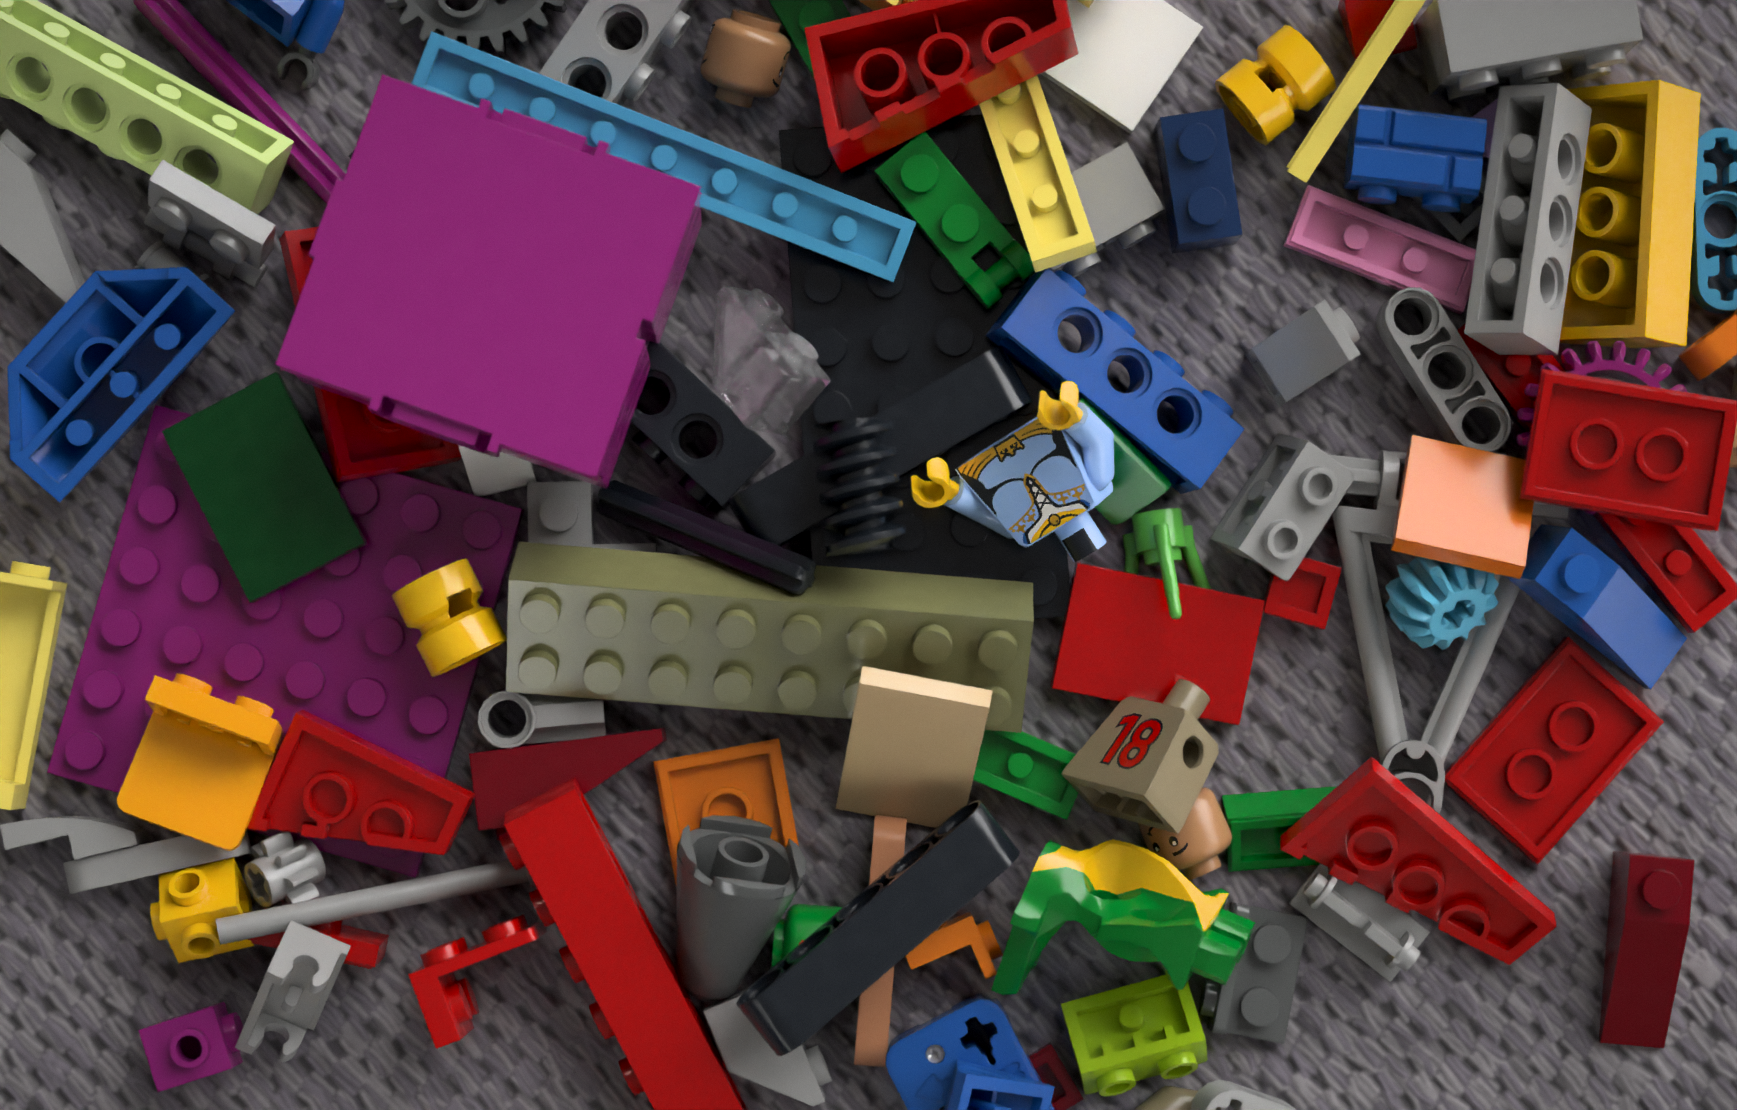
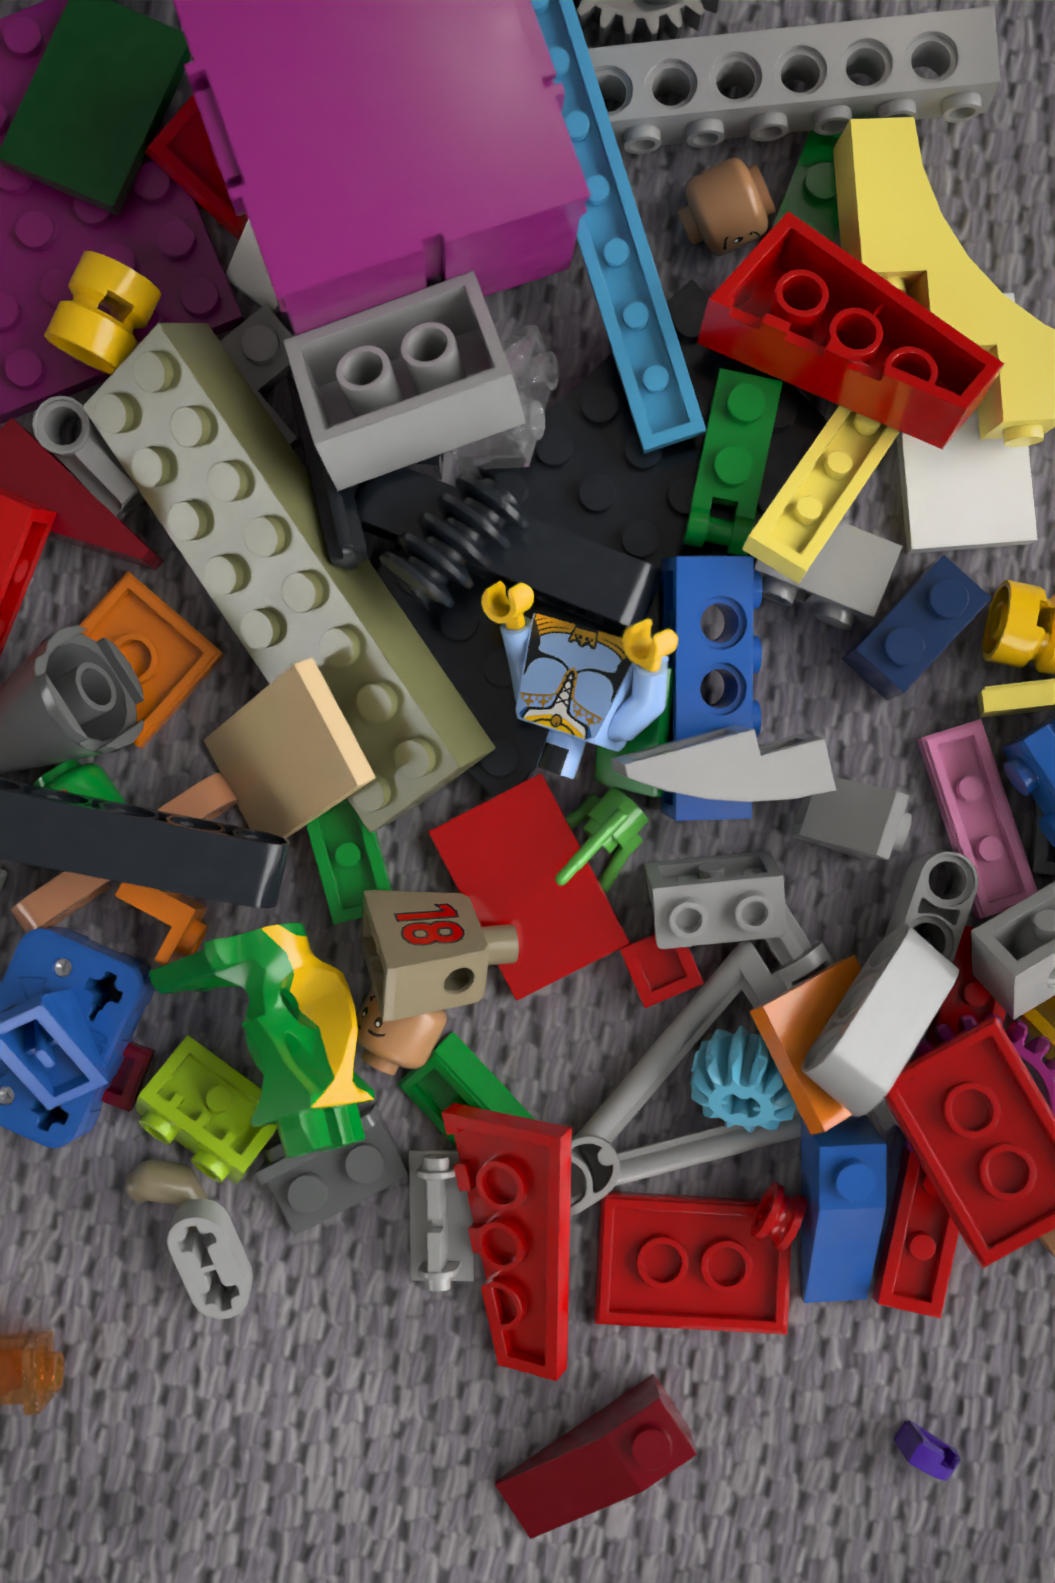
camera: 50 degrees right, 0 degrees up
(704, 427) = (404, 381): none -> light grey brick
(1195, 414) = (733, 766): none -> light grey slope
(1475, 456) = (880, 1020): none -> beam
(1566, 654) = (778, 1216): none -> red bush

